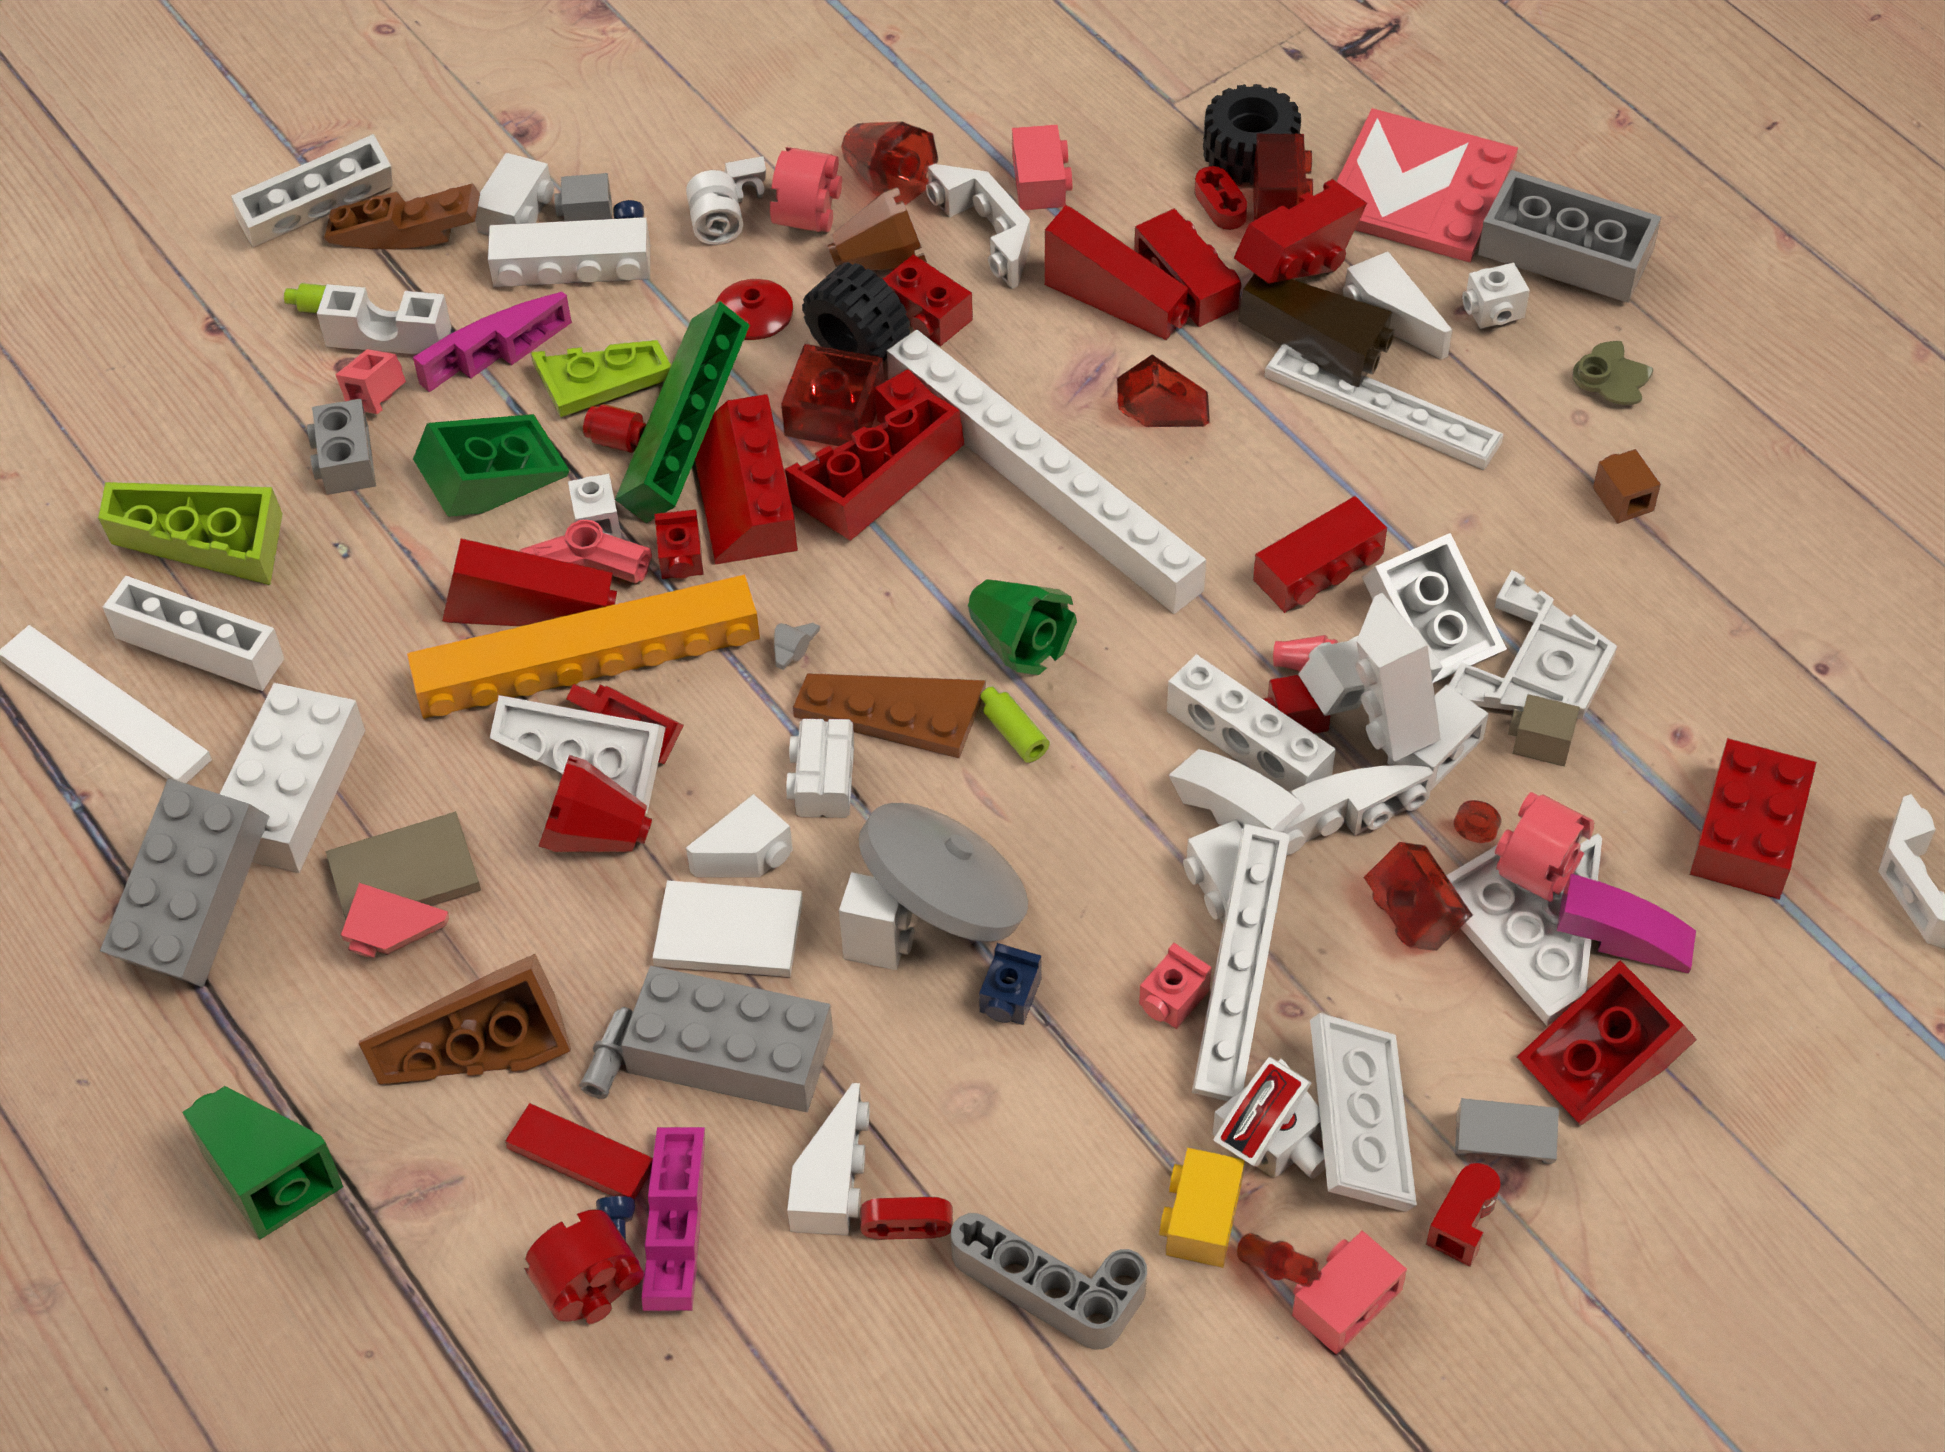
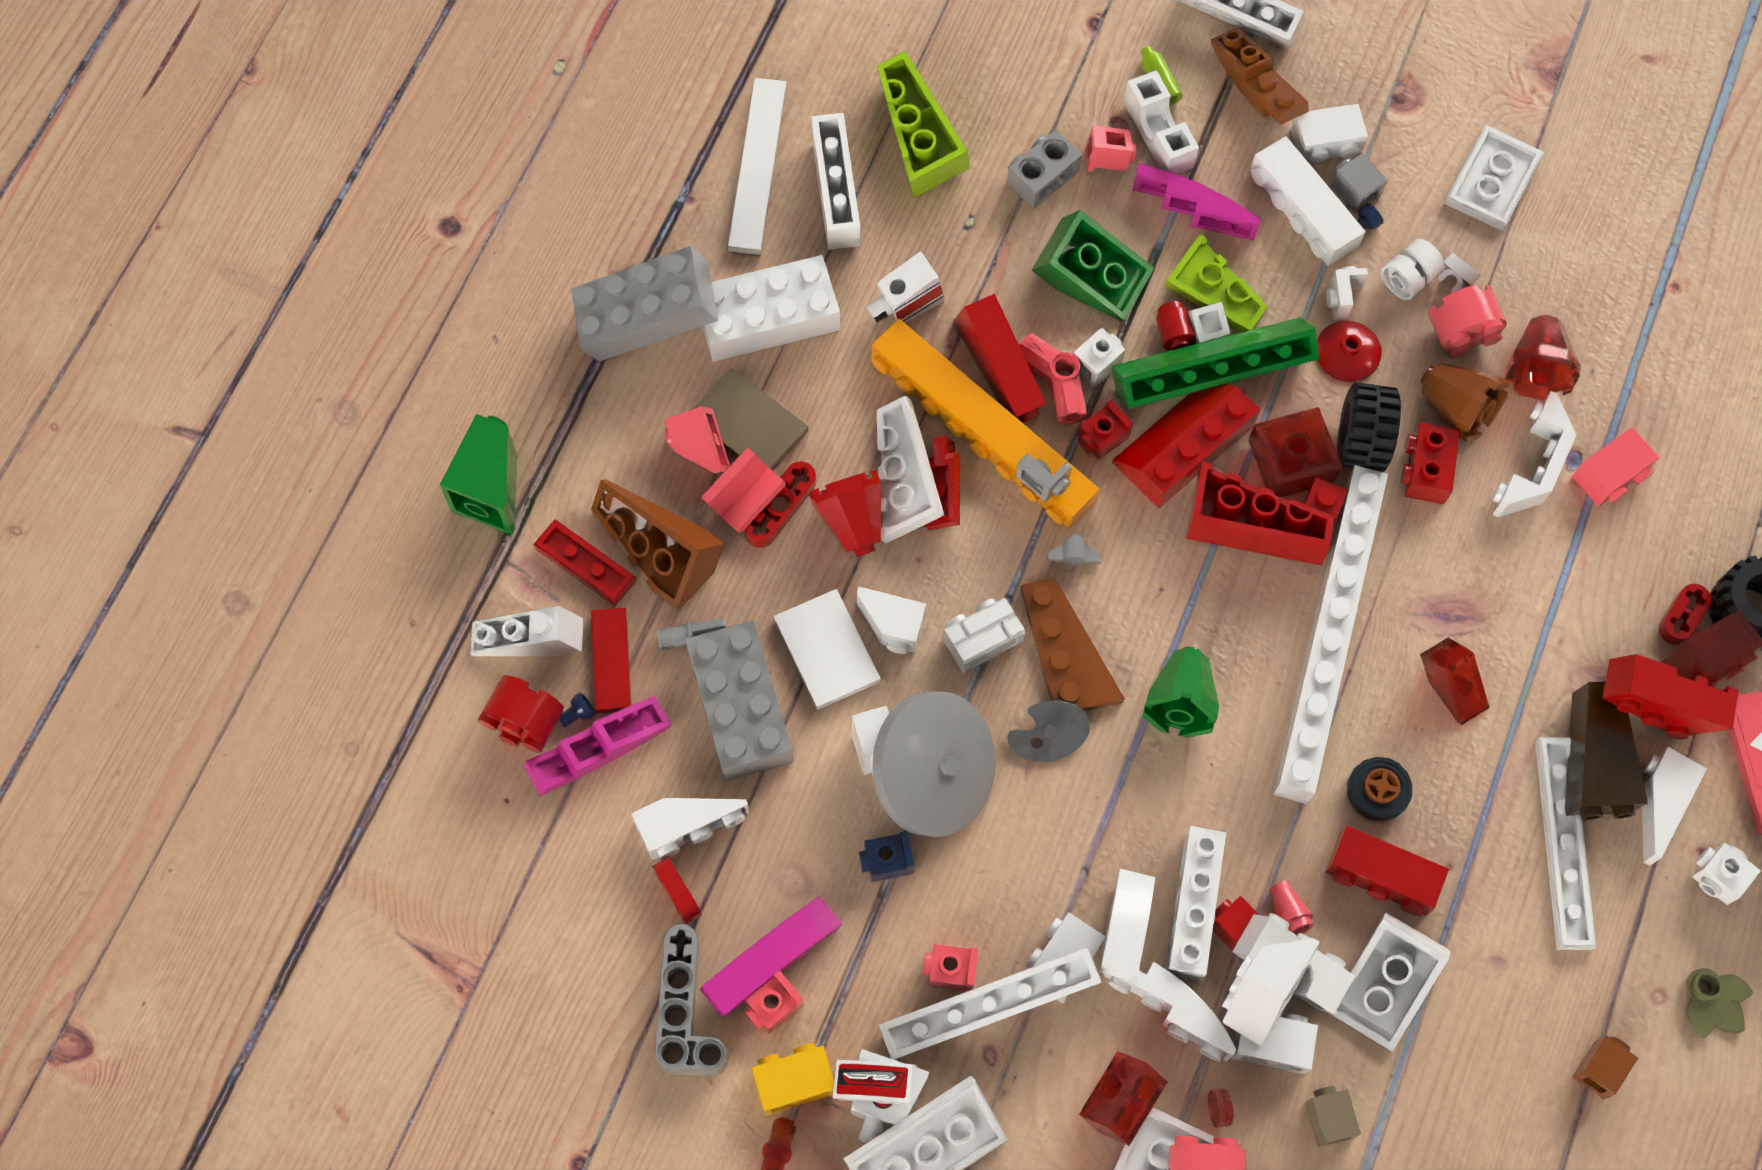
camera: 55 degrees right, 15 degrees up
(381, 630) = (907, 291): none -> white torso
(439, 1122) = (585, 562): none -> red tile
(483, 1224) = (530, 633): none -> white slope
(487, 907) = (743, 490): none -> coral panel
(523, 904) = (801, 490): none -> red beam
(635, 393) = (1209, 322): none -> white tile
(668, 104) = (1494, 178): none -> white tile
(690, 275) = (1340, 290): none -> white bracket
(697, 611) = (1038, 477): none -> light grey bracket
(974, 753) = (1060, 727): none -> flat silver piece
(1014, 725) = (1100, 739): lime cylinder -> none
(1048, 1159) = (770, 954): none -> dark pink slope
(1092, 1170) = (788, 1004): none -> coral brick
(1111, 276) = (1541, 580): red slope -> none
(1180, 252) = (1594, 628): red brick -> none
(1231, 517) = (1387, 778): none -> black wheel
(1557, 660) = (1397, 1096): white wing -> none

